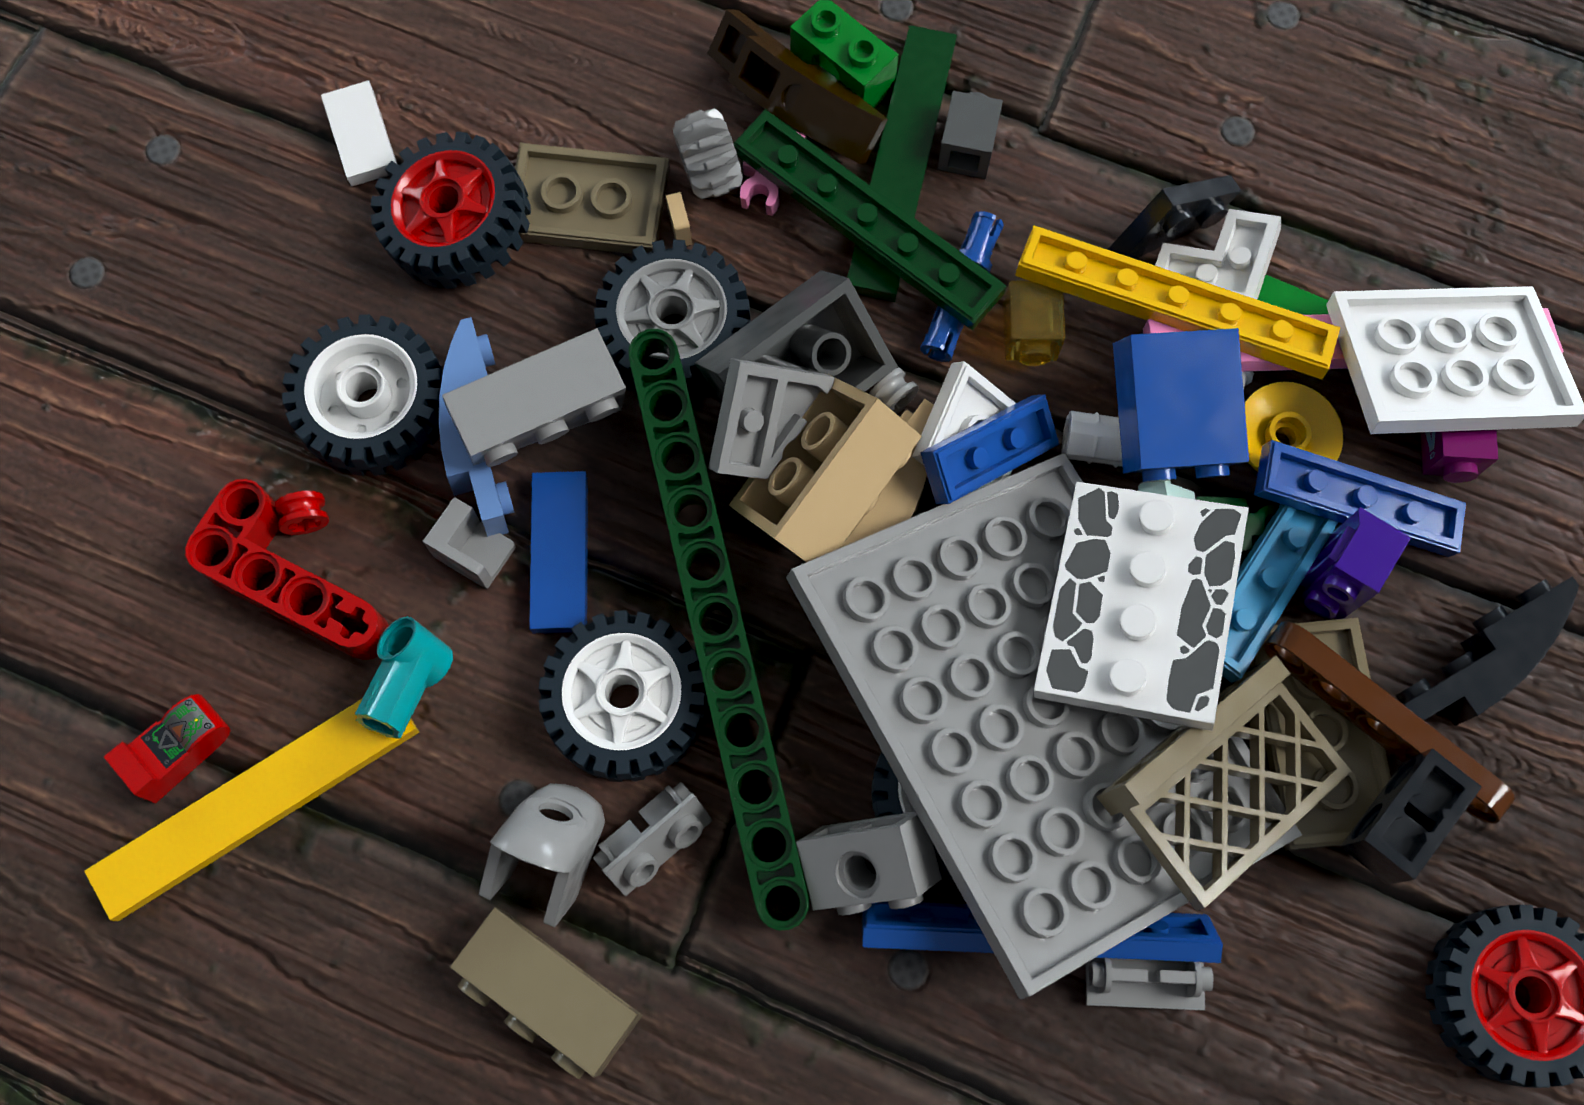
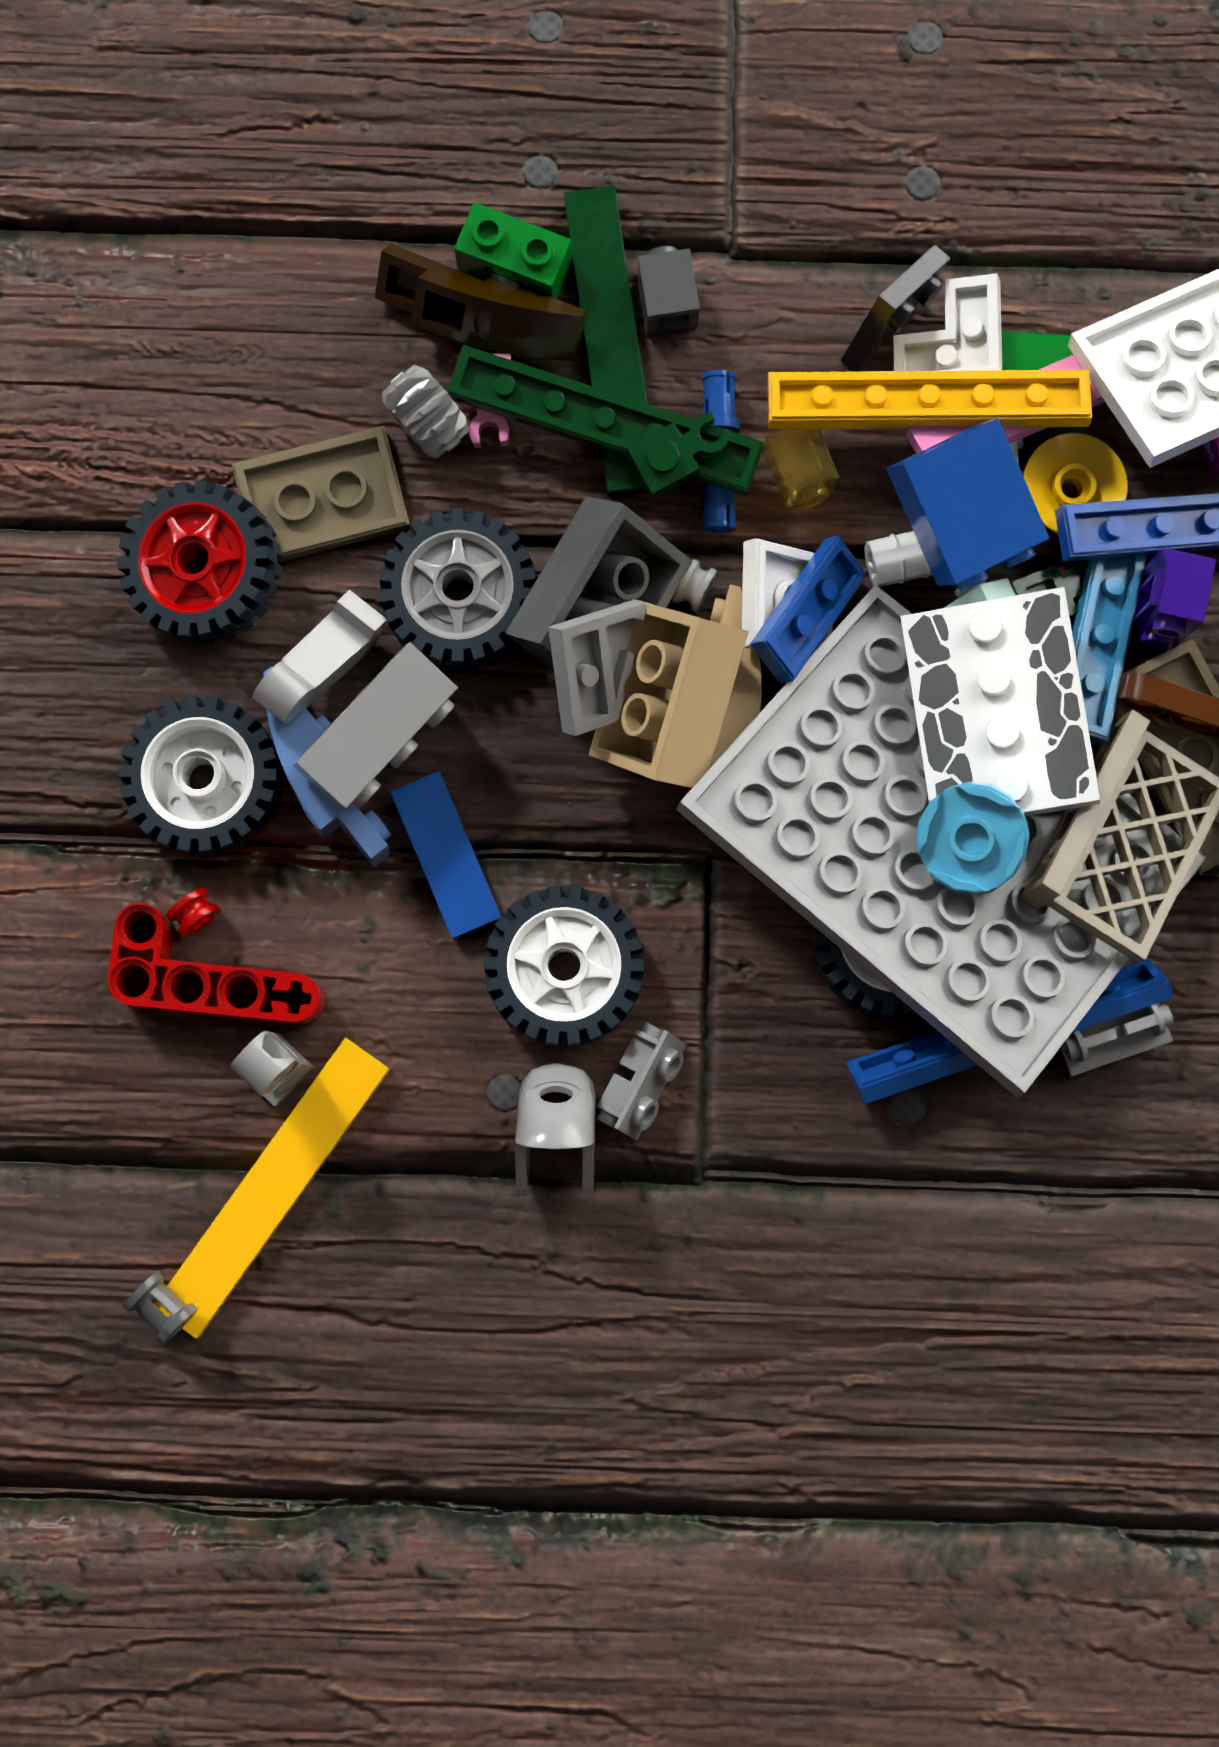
camera: 20 degrees left, 10 degrees up
(85, 872) = (156, 1289): none -> dark grey bush
(169, 748) = (176, 1170): red leg -> none
(298, 673) = (271, 1066): none -> light grey leg
(359, 132) = (67, 512): white tile -> none
(409, 665) = (361, 1013): teal piece -> none
(463, 545) = (359, 884): light grey panel -> none
(514, 326) = (320, 658): none -> leg
(544, 994) = (606, 1250): dark tan brick -> none
(678, 218) = (421, 486): tan piece -> none
(718, 593) = (618, 840): dark green beam -> none
(894, 845) = (858, 1006): light grey brick -> none
(910, 265) = (669, 458): none -> dark green plate
(1070, 714) = (972, 837): none -> medium azure tile

